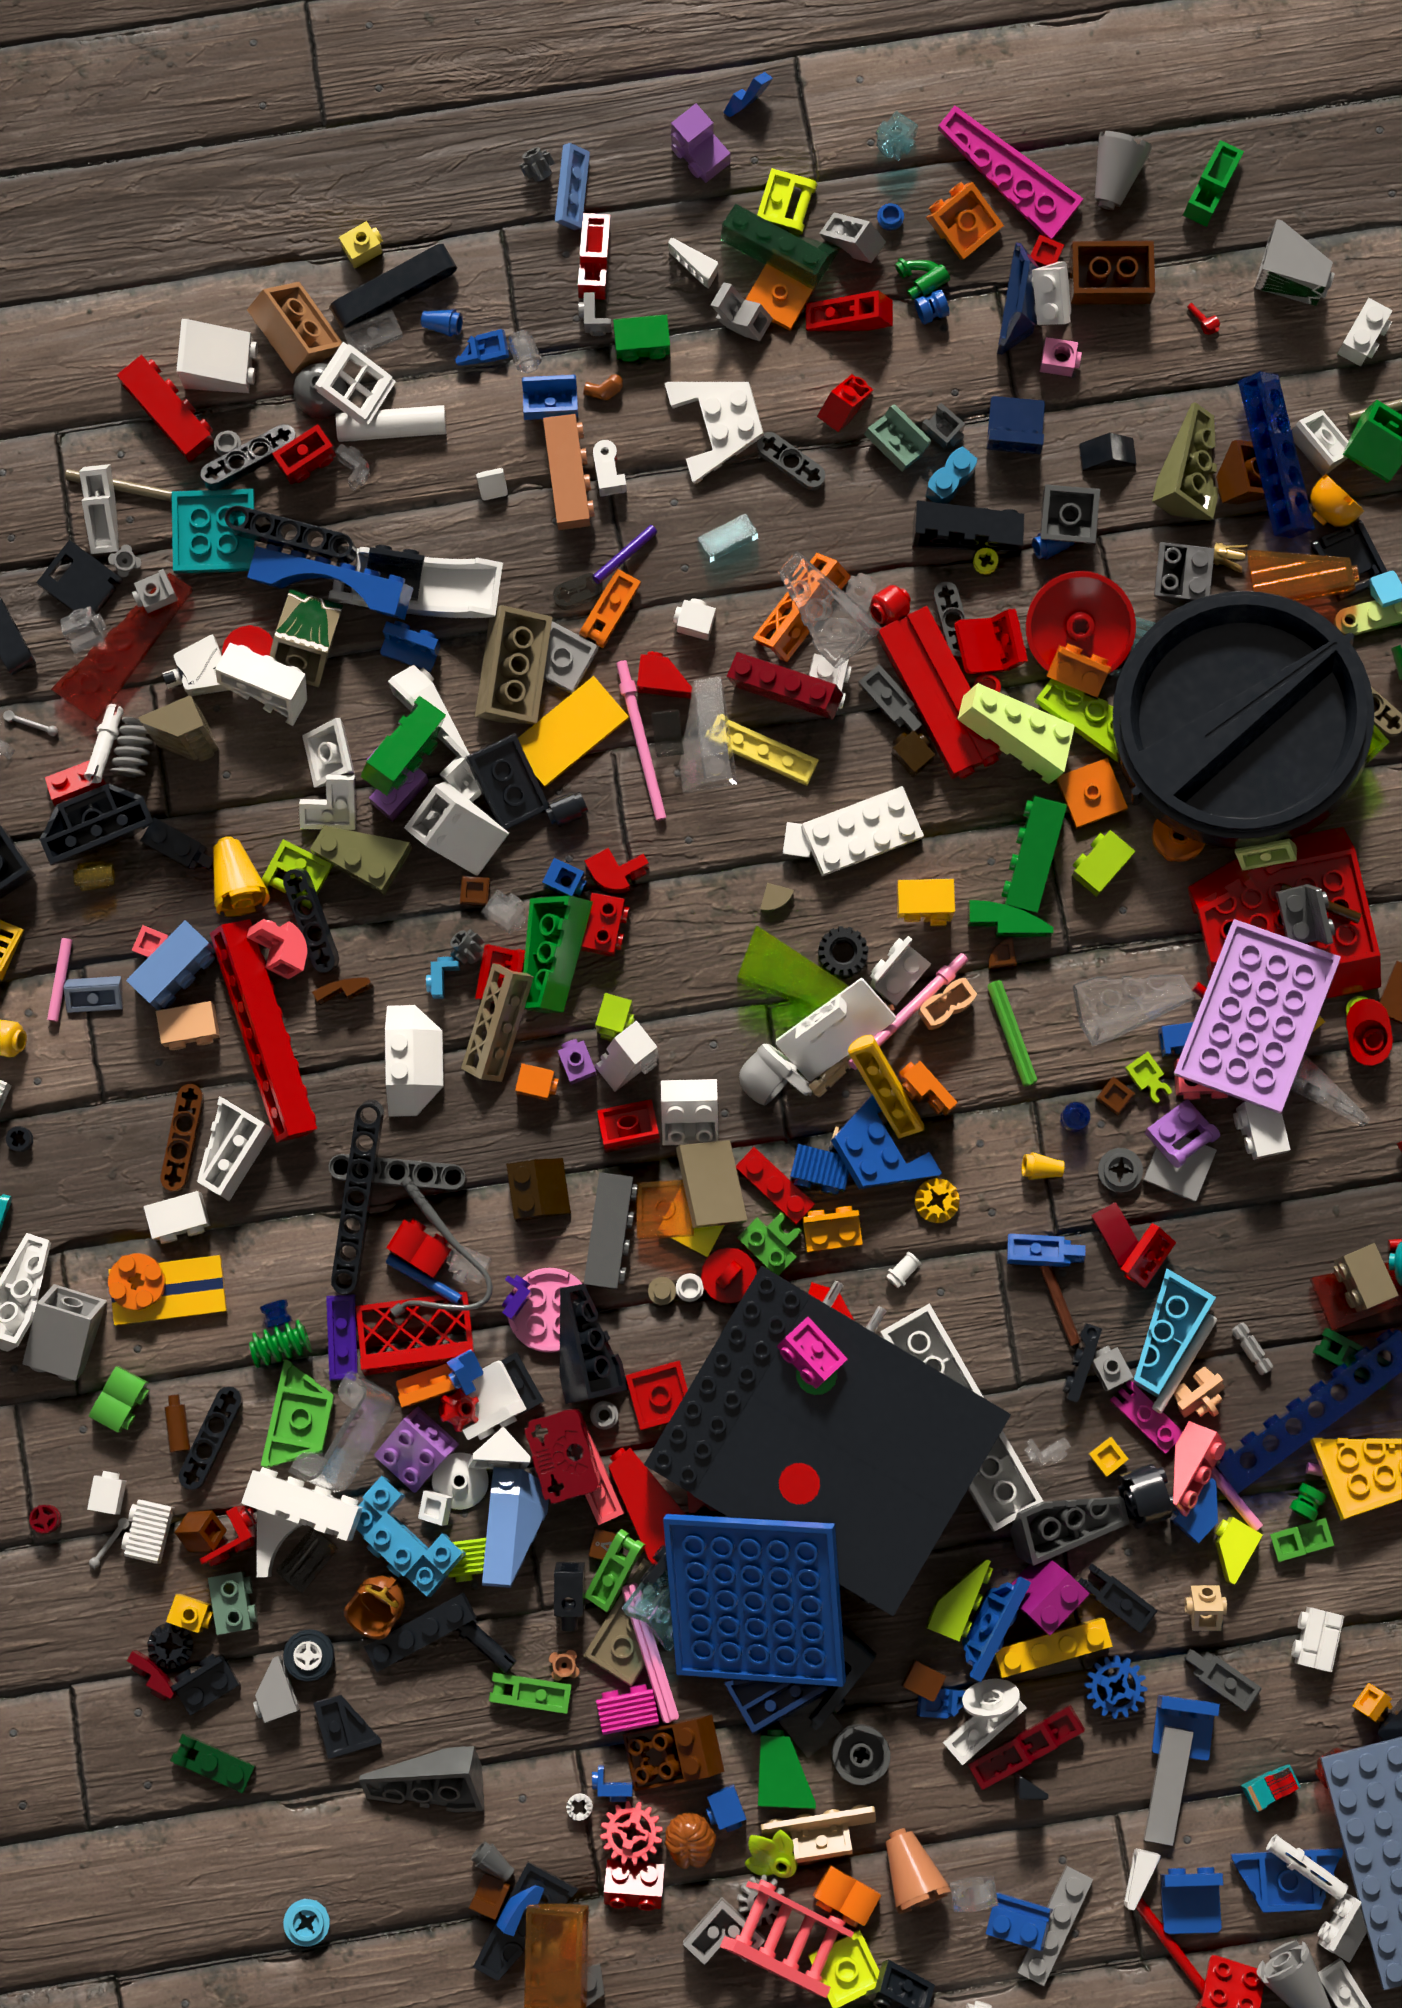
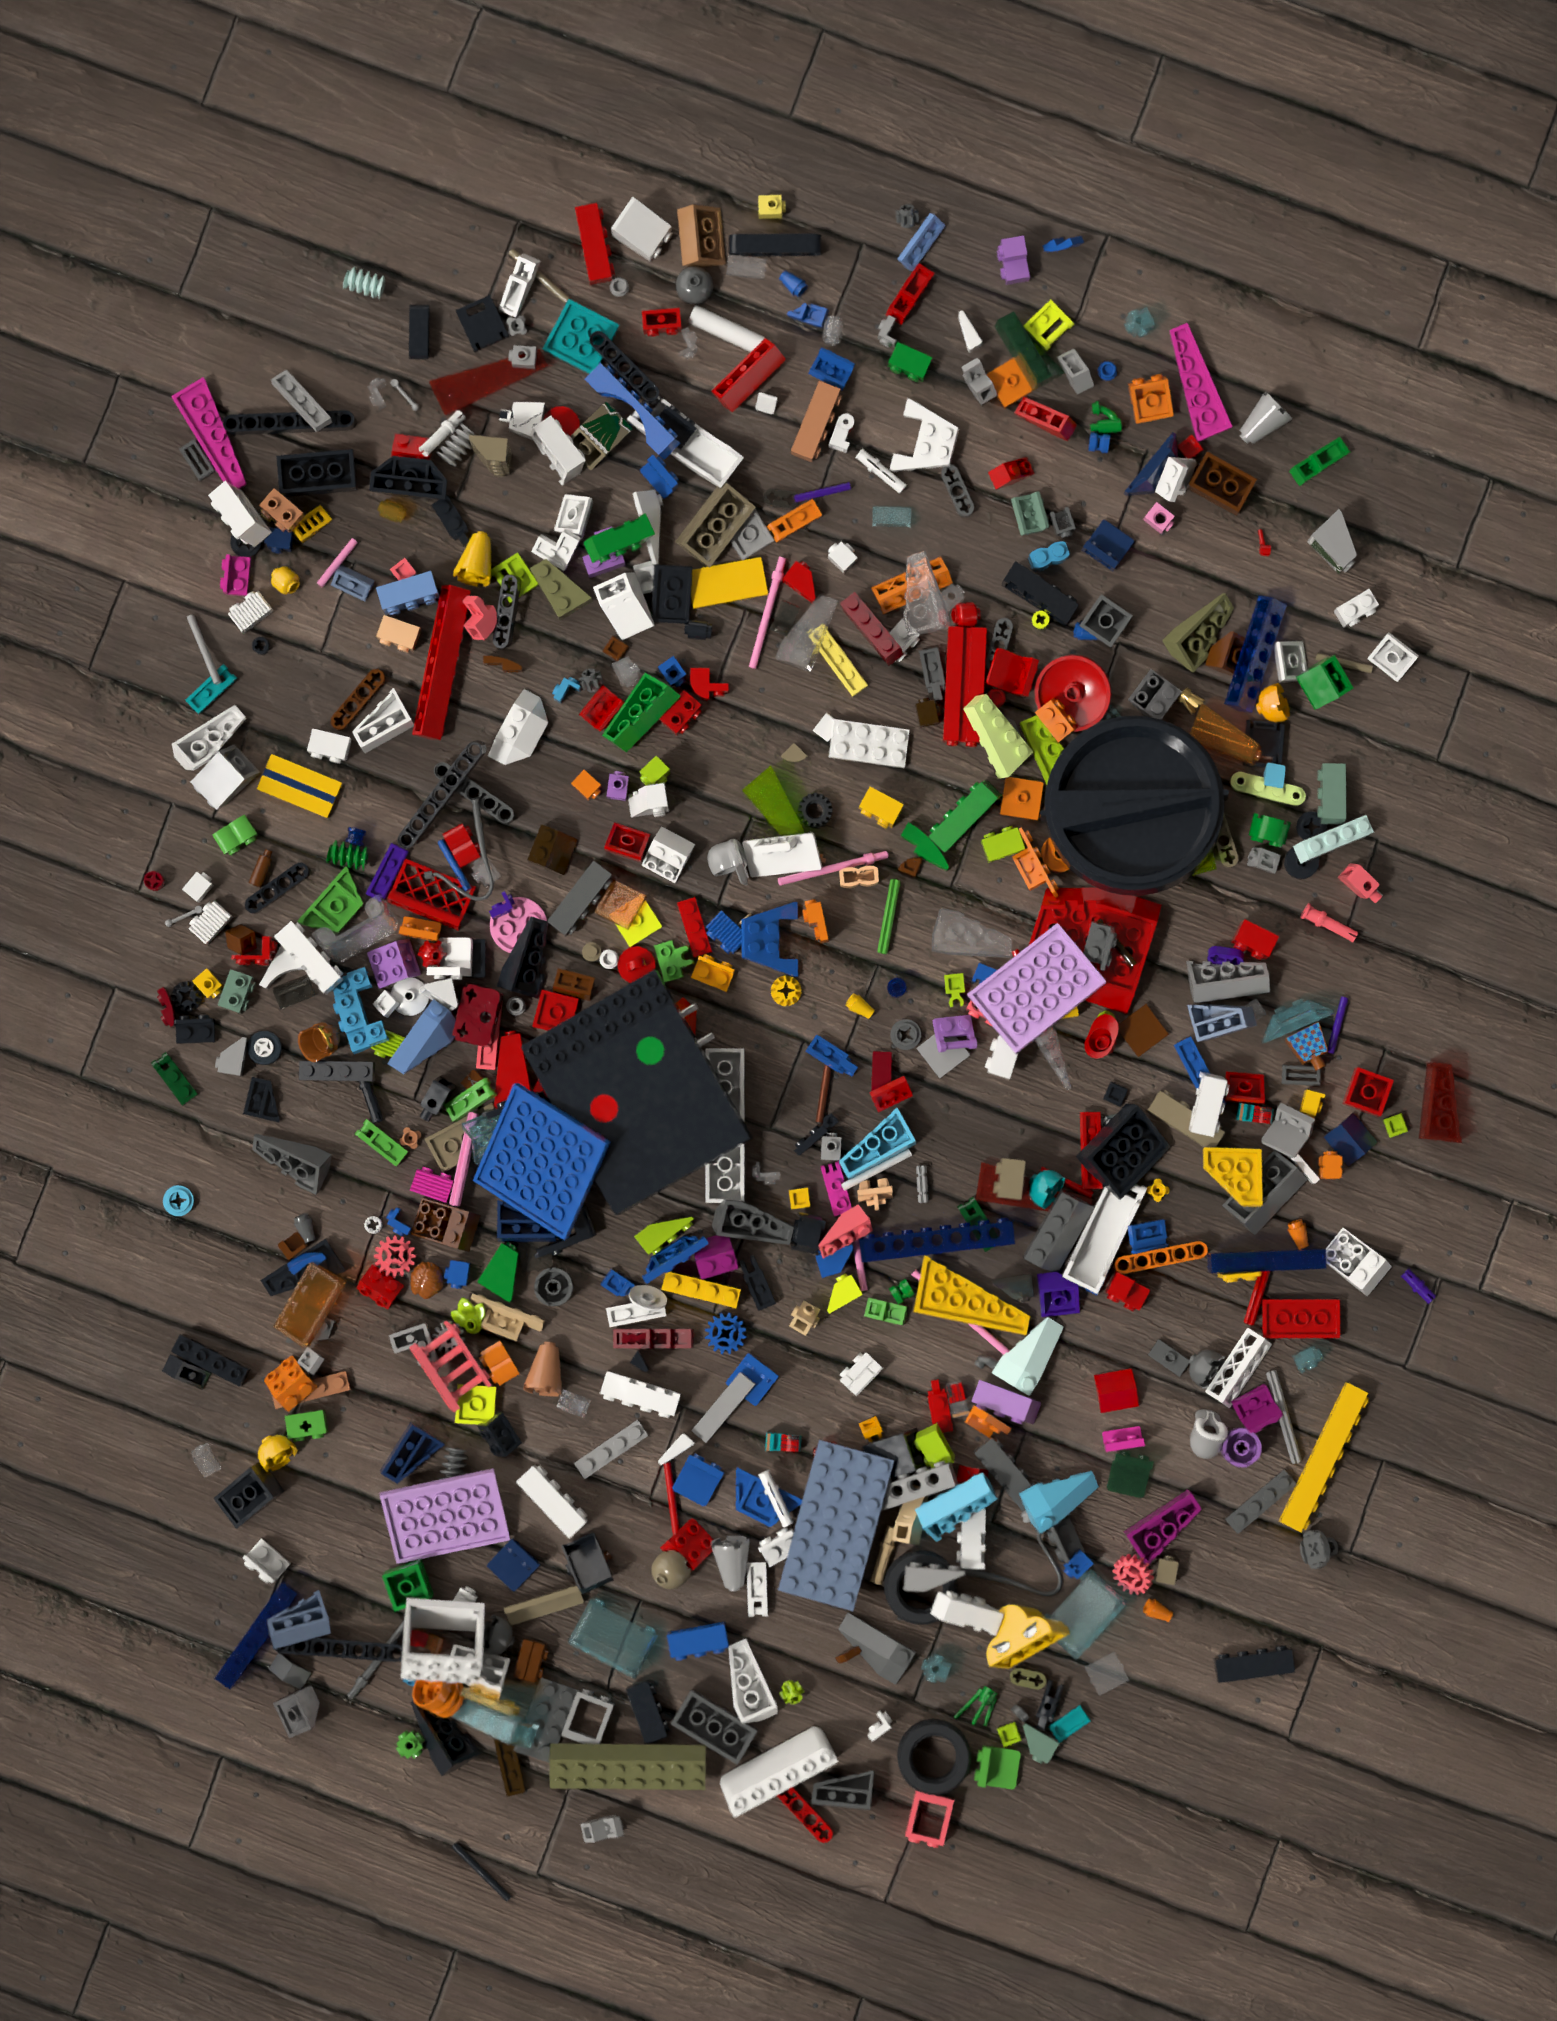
camera: 30 degrees right, 5 degrees up
(83, 629) = (467, 355): clear brick -> none
(144, 1295) = (283, 759): orange plate -> none
(245, 453) = (626, 300): black beam -> none
(335, 370) = (724, 309): white piece -> none
(450, 461) = (748, 375): none -> red brick
(463, 1371) = (447, 932): blue bracket -> none
(500, 1025) = (584, 739): dark tan fence -> none
(605, 390) = (869, 382): dark orange arm -> none
(663, 1345) = (573, 984): none -> reddish brown hinge
(671, 486) = (863, 456): none -> white pin
(711, 1184) = (656, 905): dark tan tile -> none
(811, 1353) = (653, 1036): dark pink bracket -> none
(830, 1077) = (764, 881): tan axle -> none
(885, 1086) = (791, 905): yellow brick -> none
(899, 972) = (841, 841): white bracket -> none
(903, 1270) = (741, 1020): white pin -> none
(923, 1680) = (615, 1266): reddish brown panel -> none
(1019, 1921) = (591, 1434): blue plate -> none
(1052, 1830) = (640, 1393): none -> white wedge
(1107, 452) = (1154, 594): black slope -> none
(1115, 1096) = (928, 989): reddish brown tile -> none
(1156, 870) = (1030, 866): none -> orange bracket
(1224, 1679) = (792, 1365): dark grey hinge -> none
(1266, 854) = (1101, 895): yellowish green slope -> none

